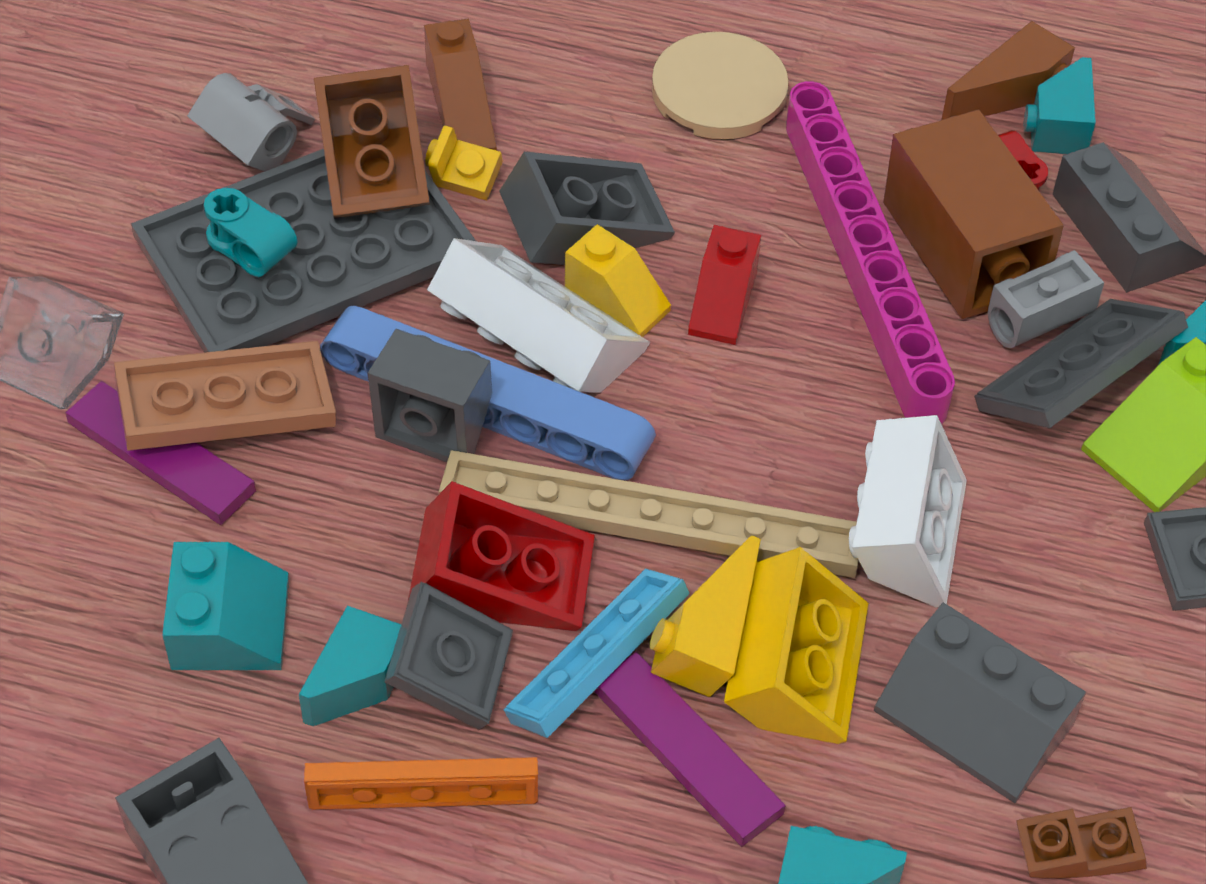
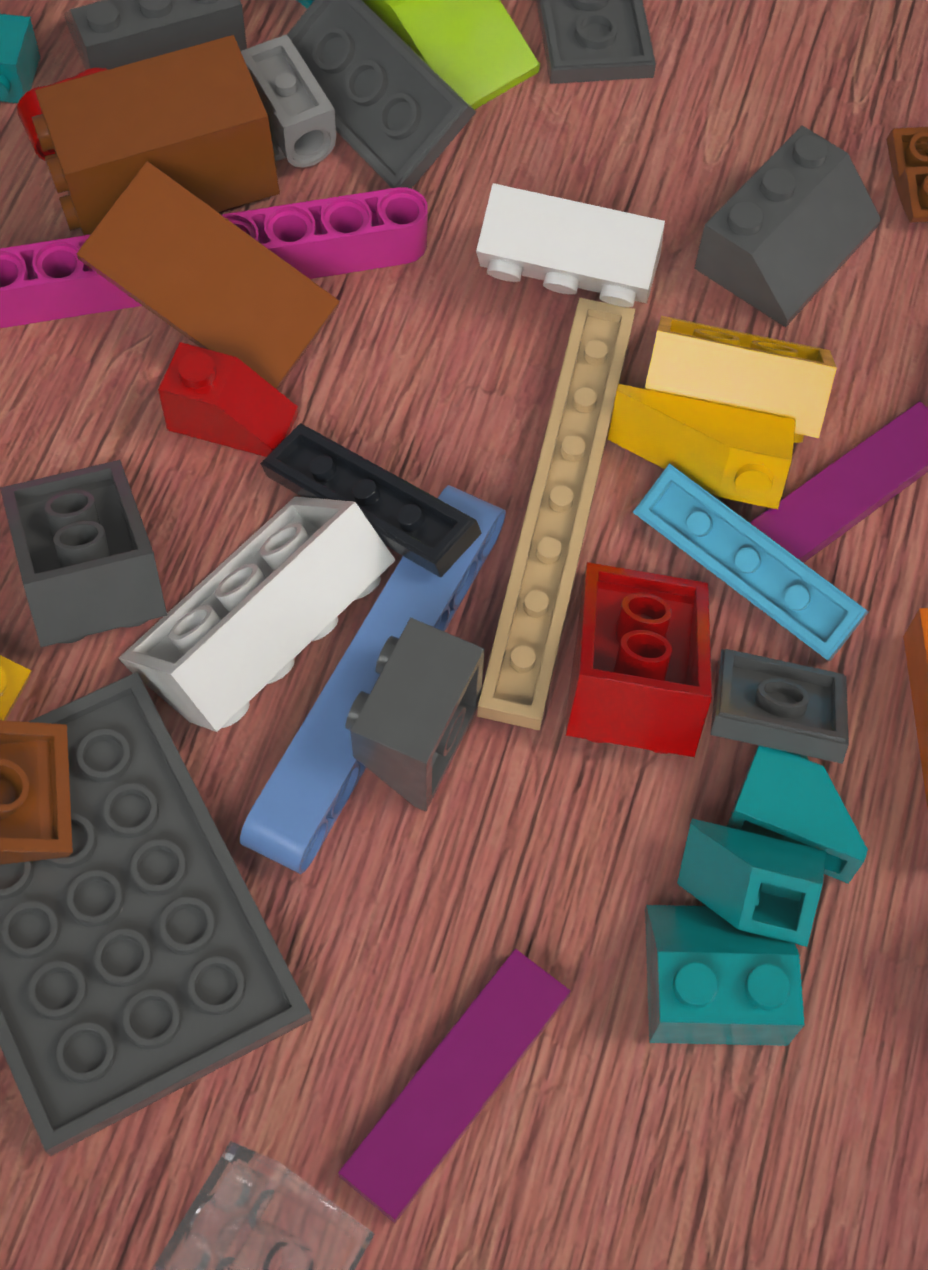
camera: 90 degrees left, 10 degrees up
(223, 395) = (384, 995): nougat plate -> none
(247, 231) = (117, 954): teal piece -> none
(288, 631) = (754, 880): none -> teal slope
(615, 280) = (207, 521): yellow slope -> none
(632, 372) = (400, 513): none -> black tile
(831, 254) = (207, 276): none -> dark orange tile

